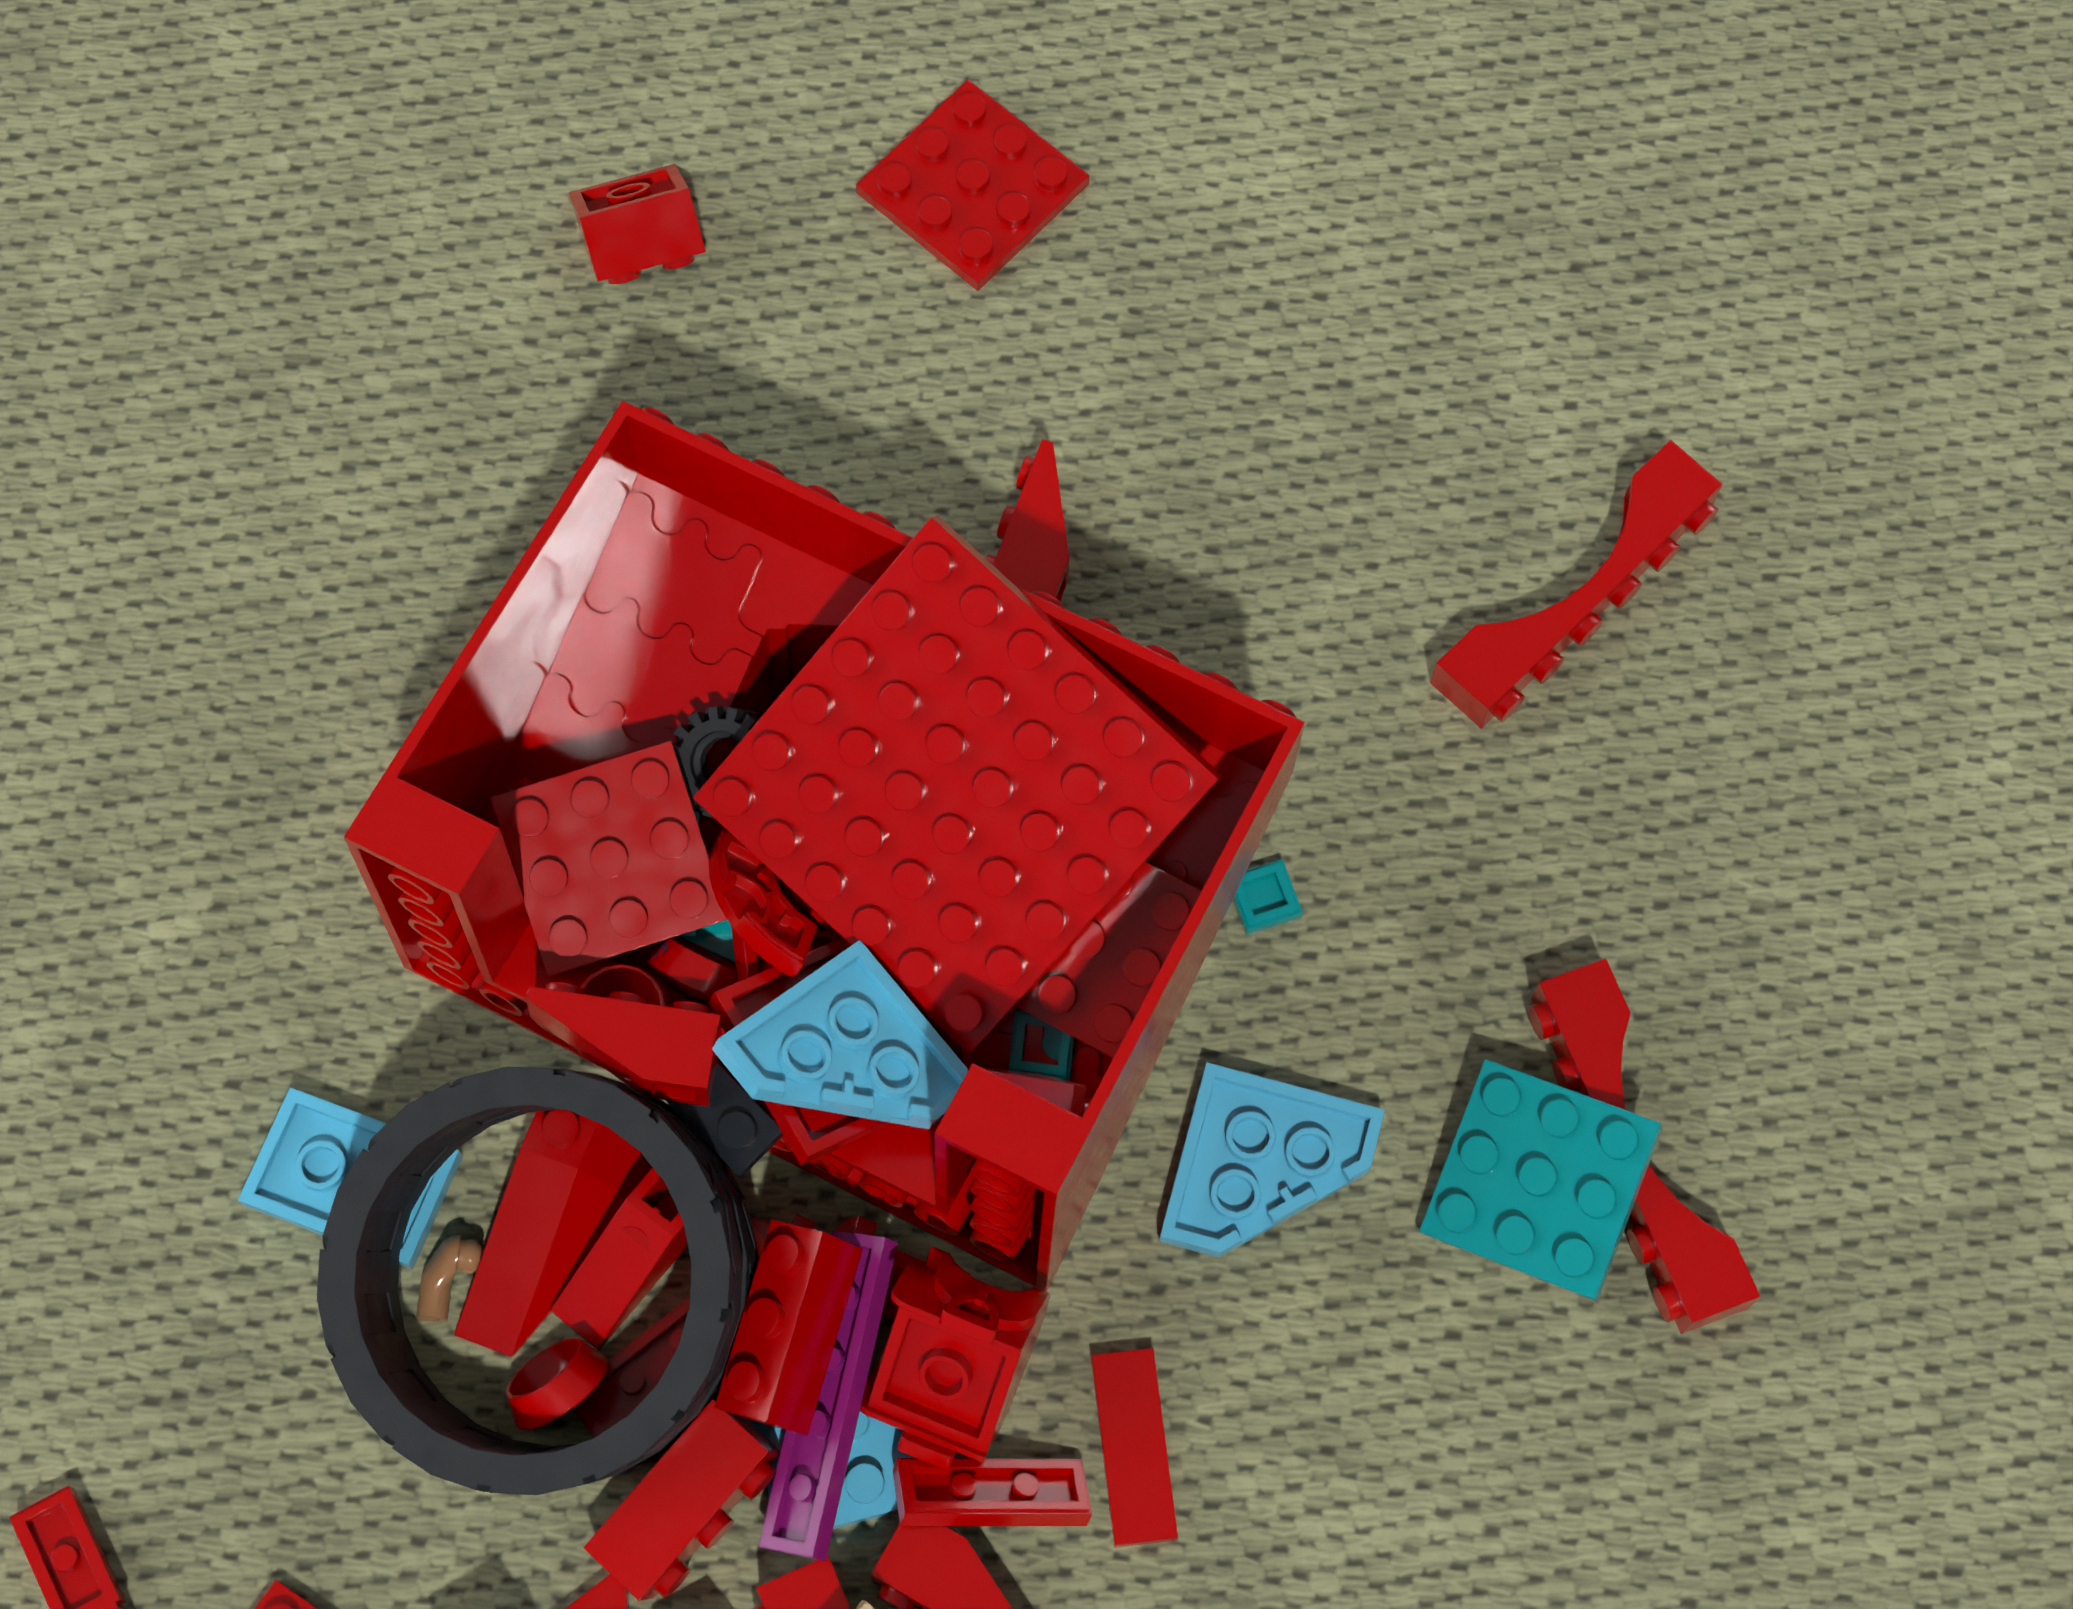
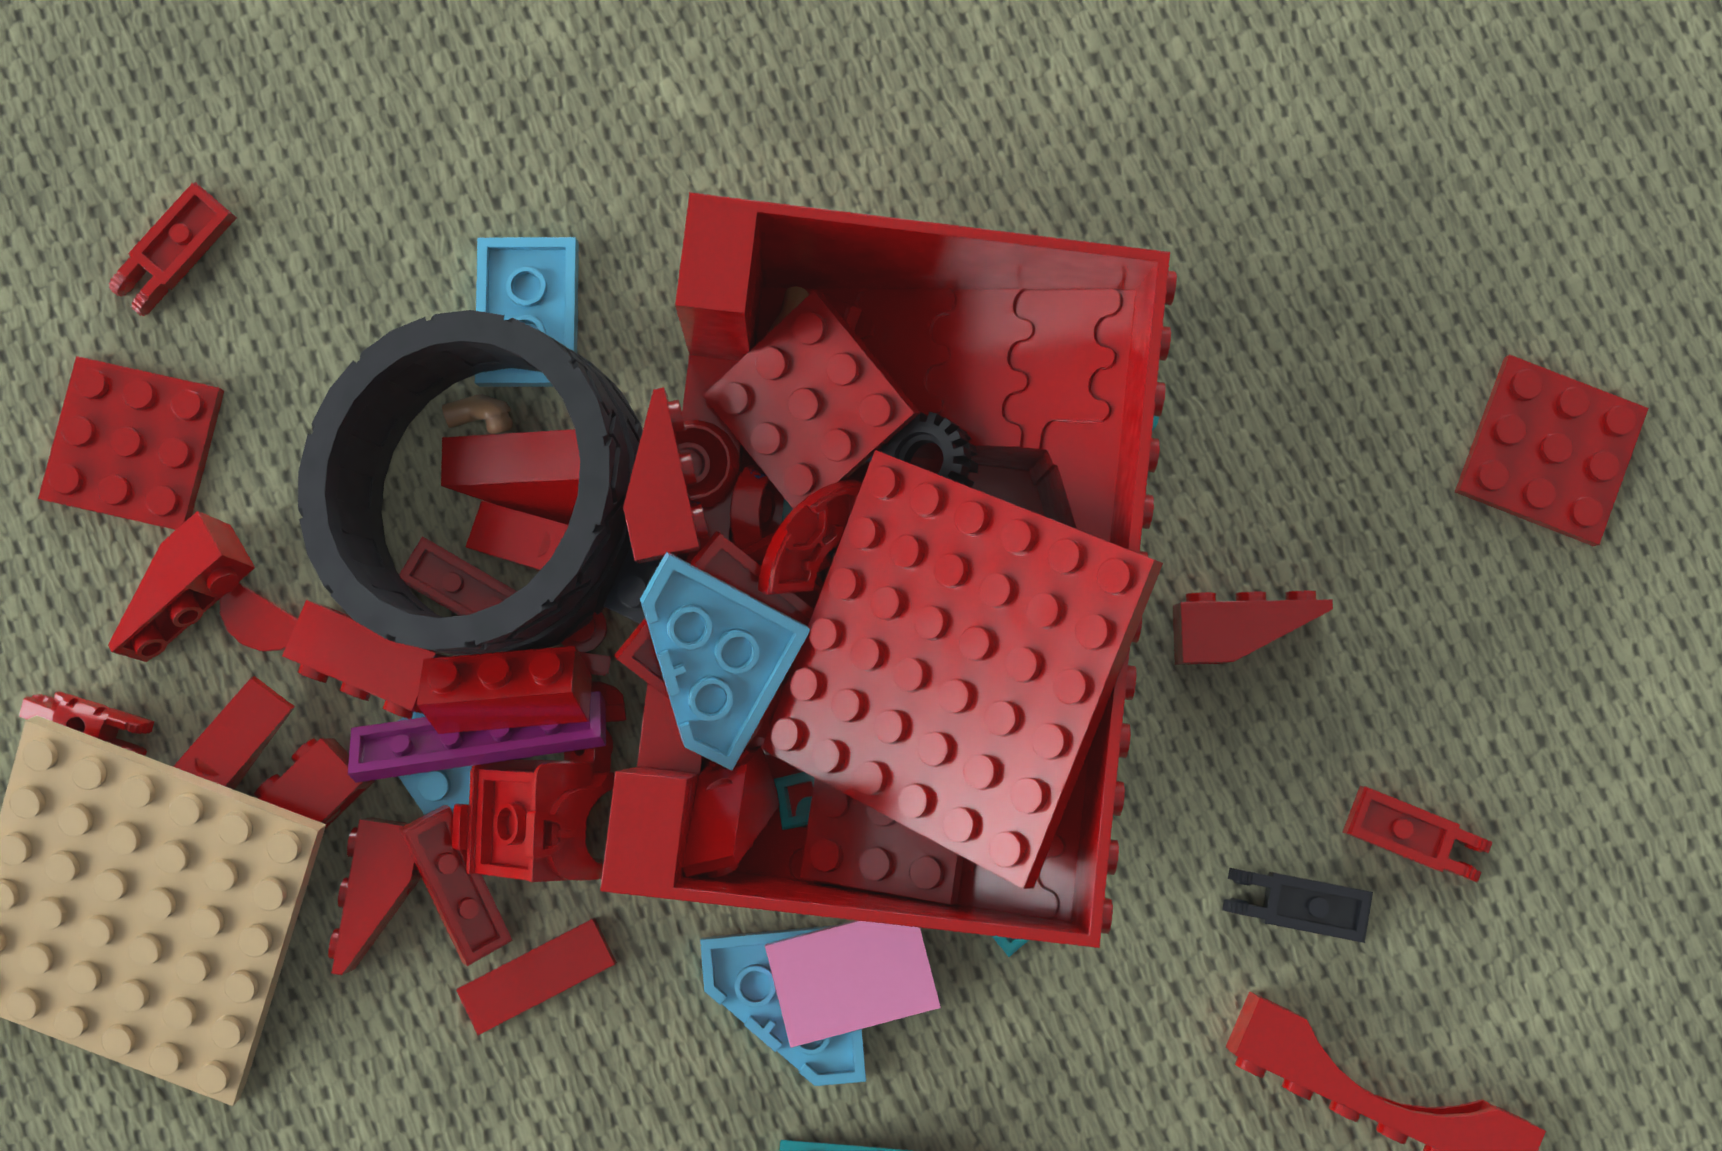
camera: 70 degrees right, 15 degrees up
(554, 1382) = (420, 529): red hat -> none
(638, 224) = (1398, 191): red slope -> none
(1261, 1078) = (850, 978): none -> bright pink tile
(1319, 459) = (1411, 832): none -> red hinge
(1355, 592) = (1305, 904): none -> black hinge

